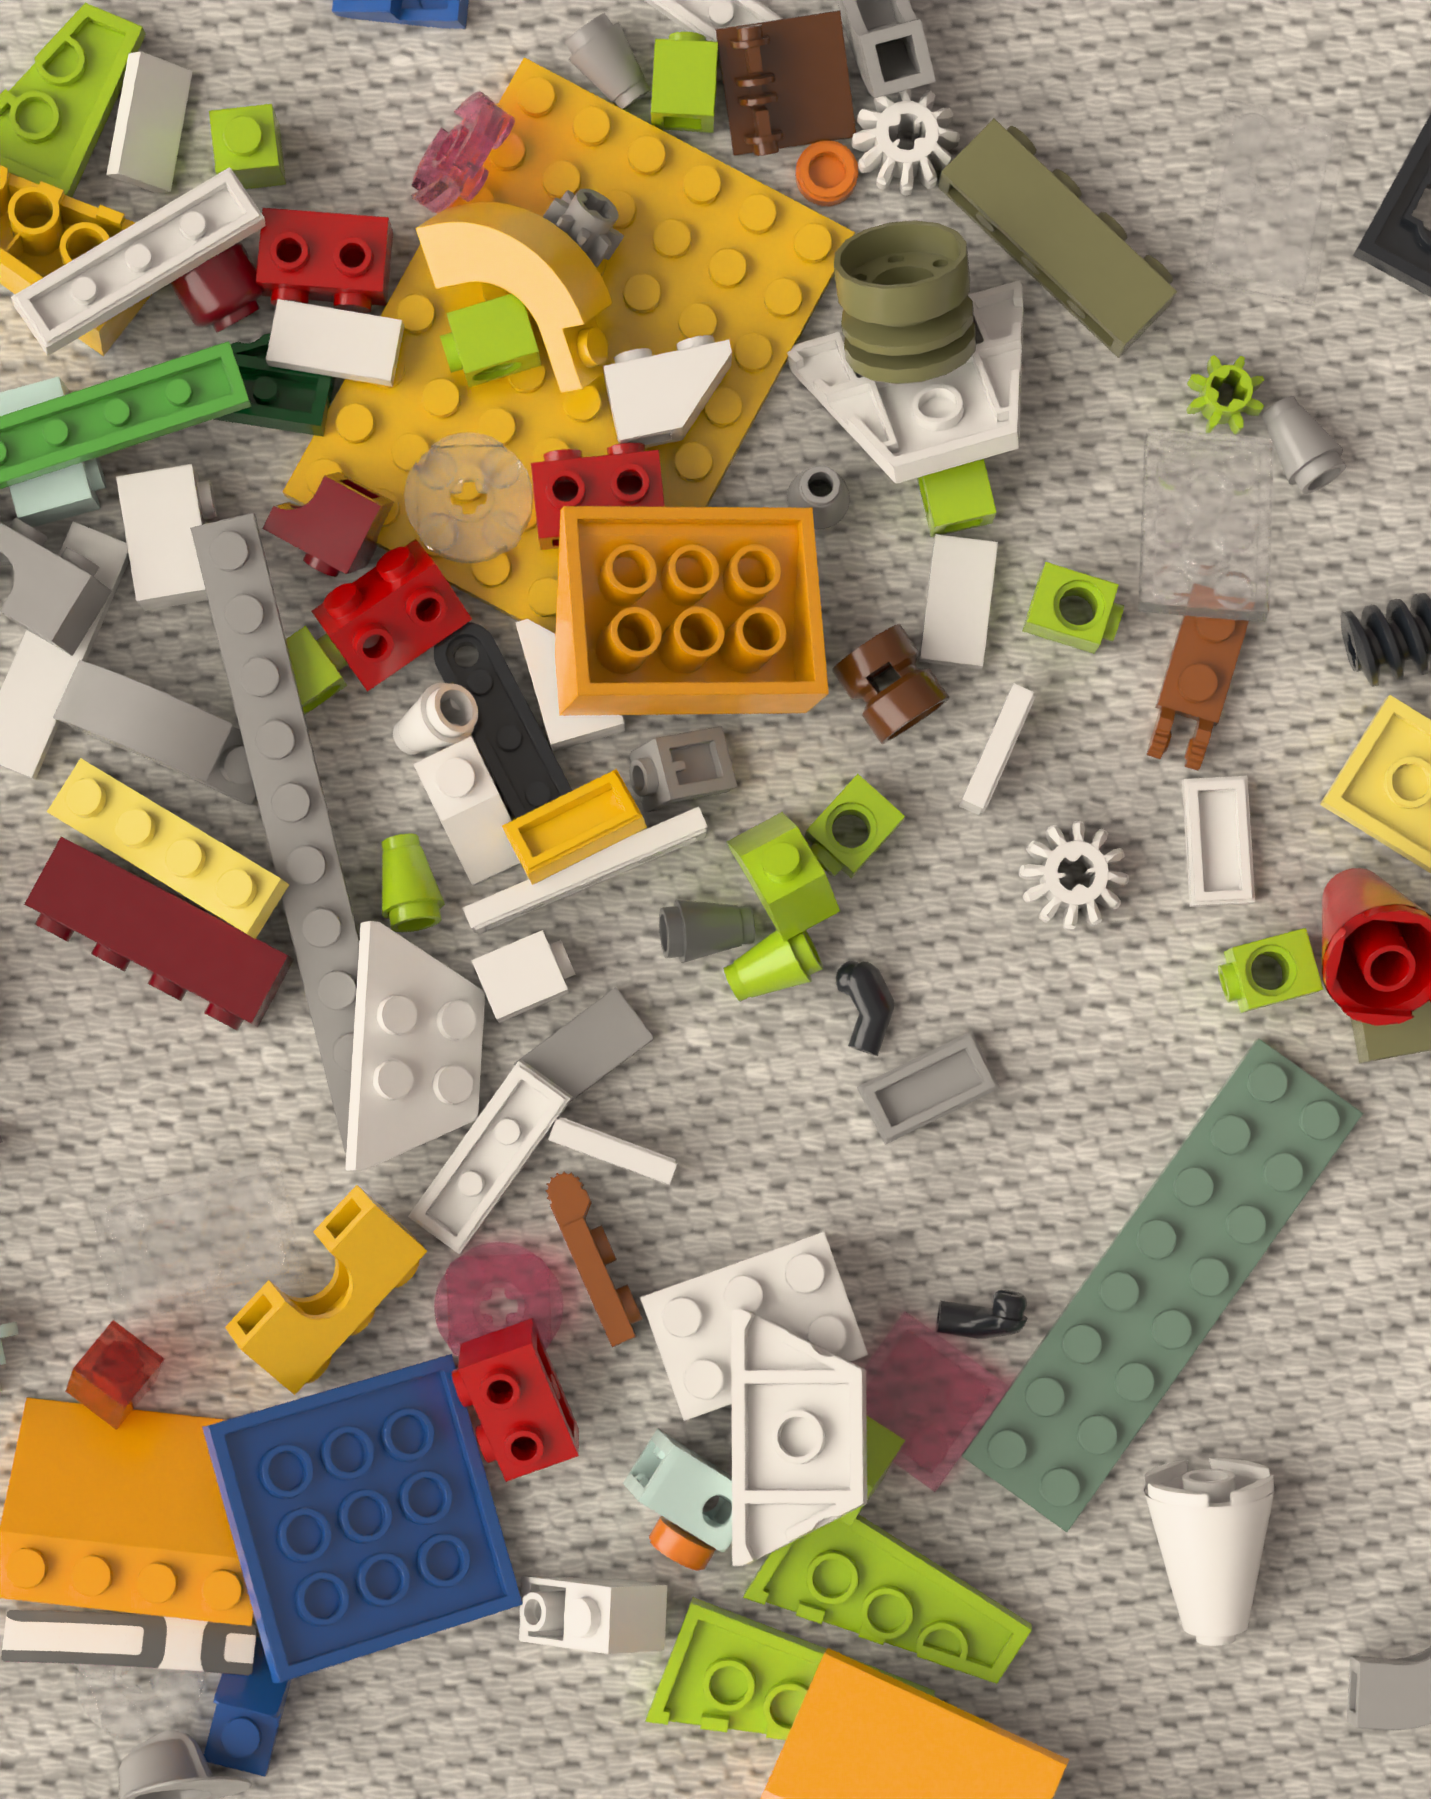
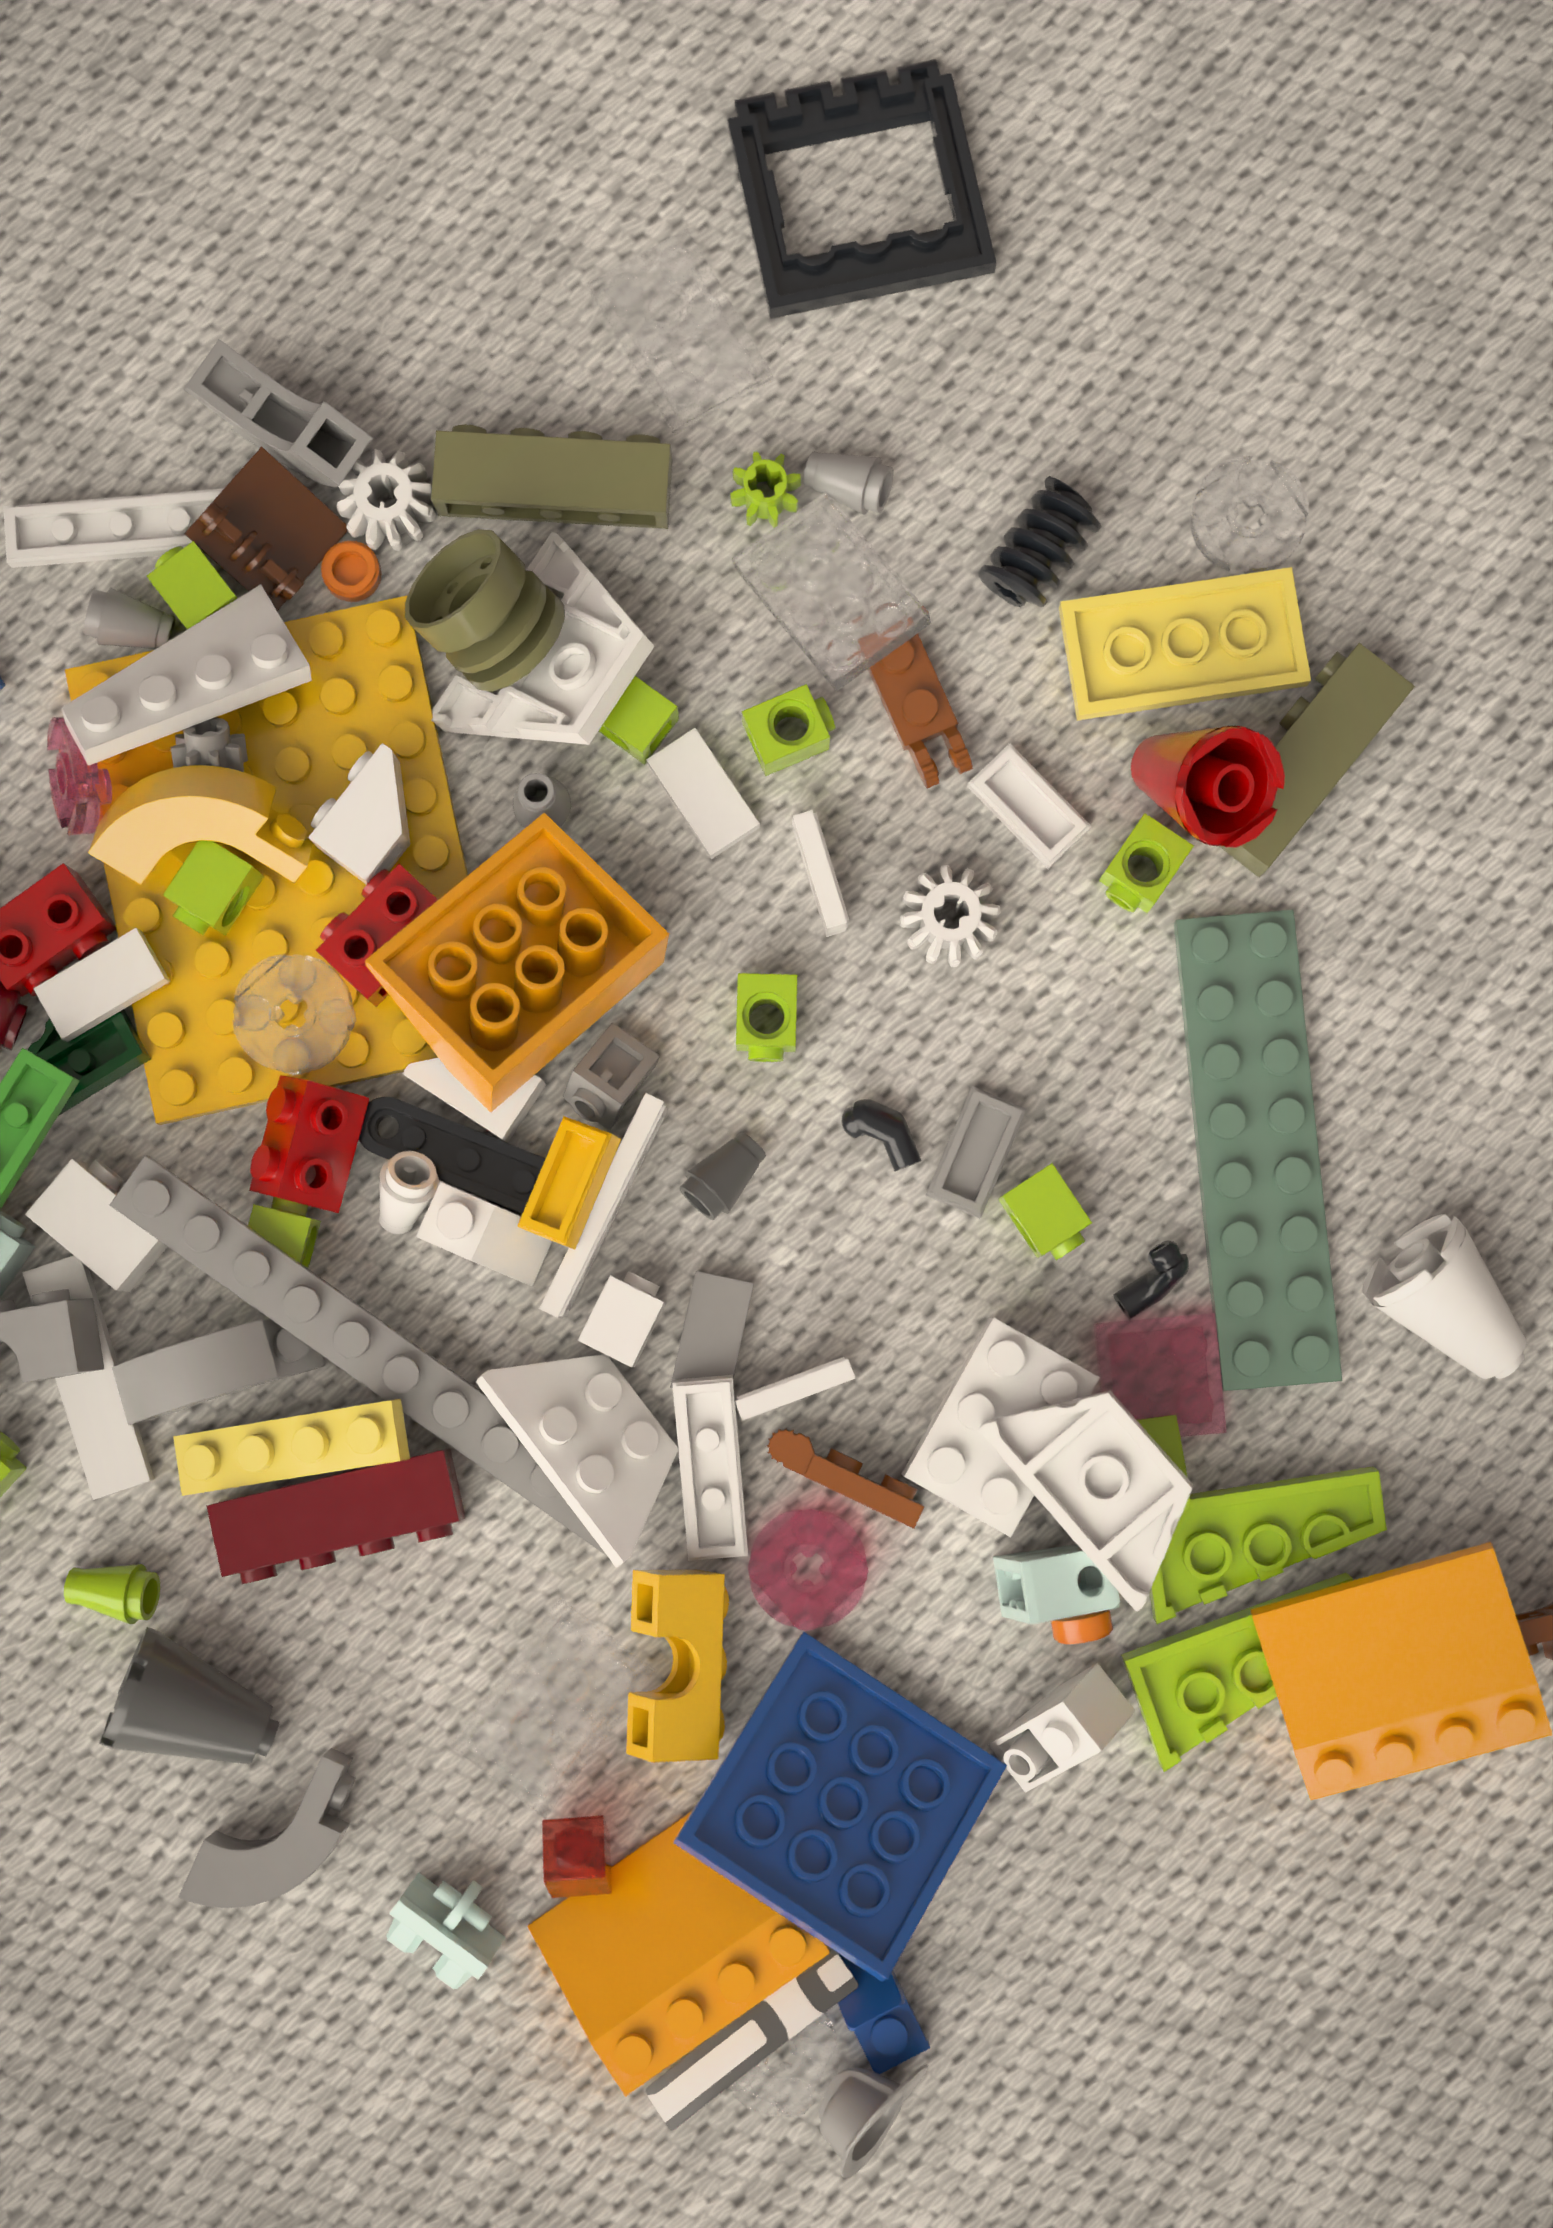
camera: 35 degrees left, 0 degrees up
(335, 526) = (213, 1115): dark red brick -> none
(408, 885) = (487, 1325): lime cone -> none
(516, 1400) = (879, 1625): red brick -> none
(627, 157) = (198, 675): none -> white wing
(773, 966) = (793, 1158): lime cone -> none
(784, 875) = (747, 1089): lime slope -> none
(902, 702) = (725, 897): reddish brown wheel -> none
(942, 1186) = (1046, 1213): none -> lime brick

